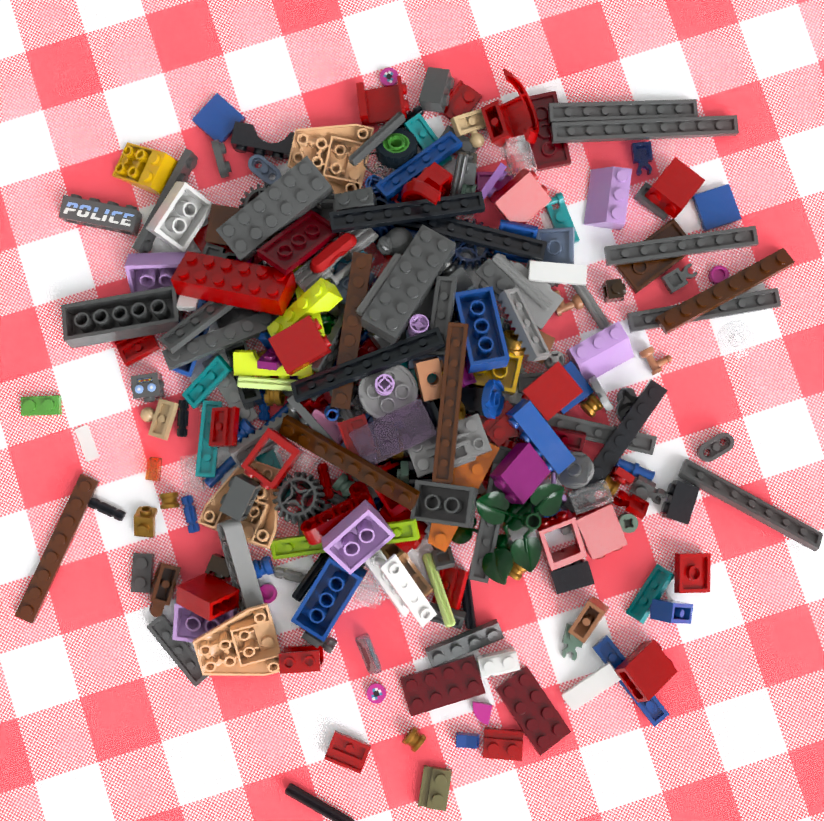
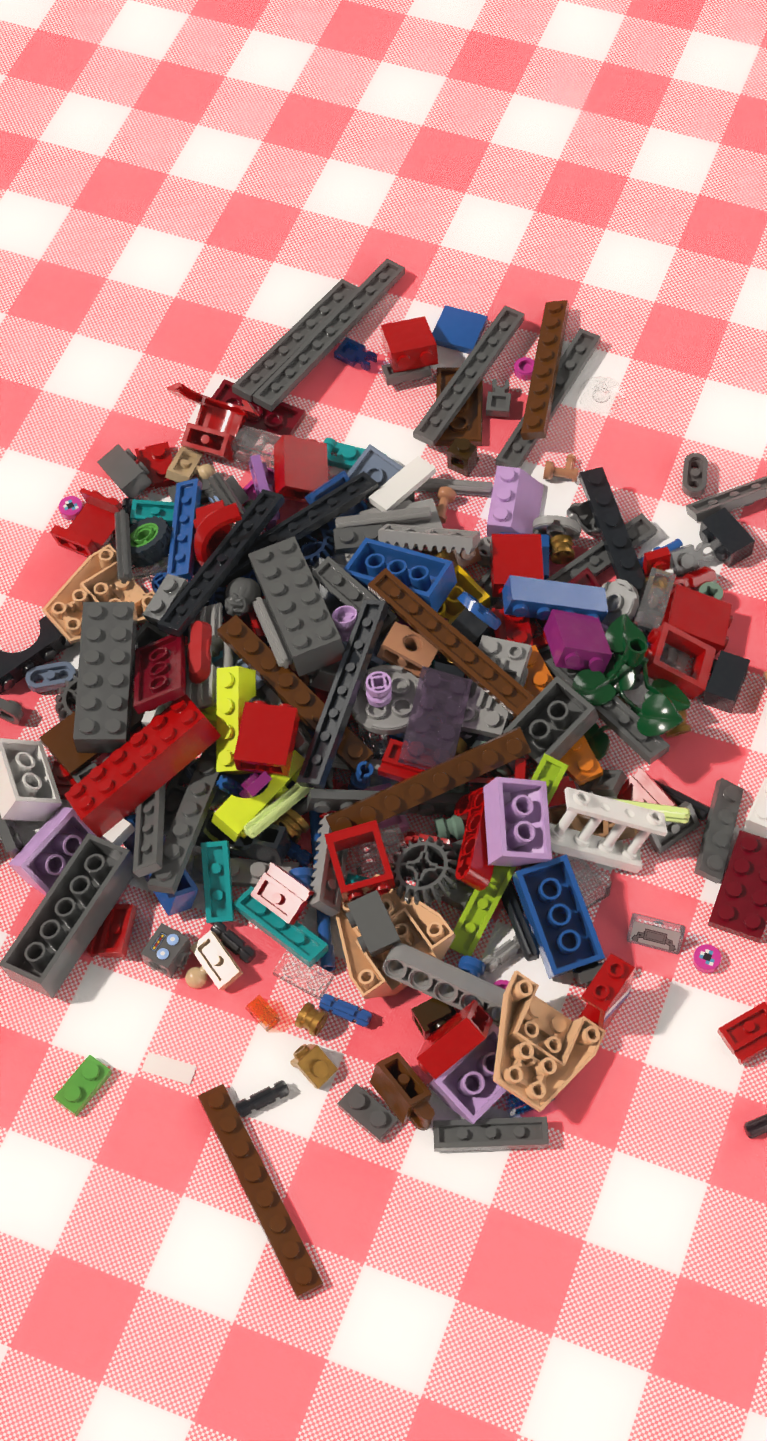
camera: 50 degrees left, 25 degrees down
(608, 197) = (368, 404): lavender slope -> none

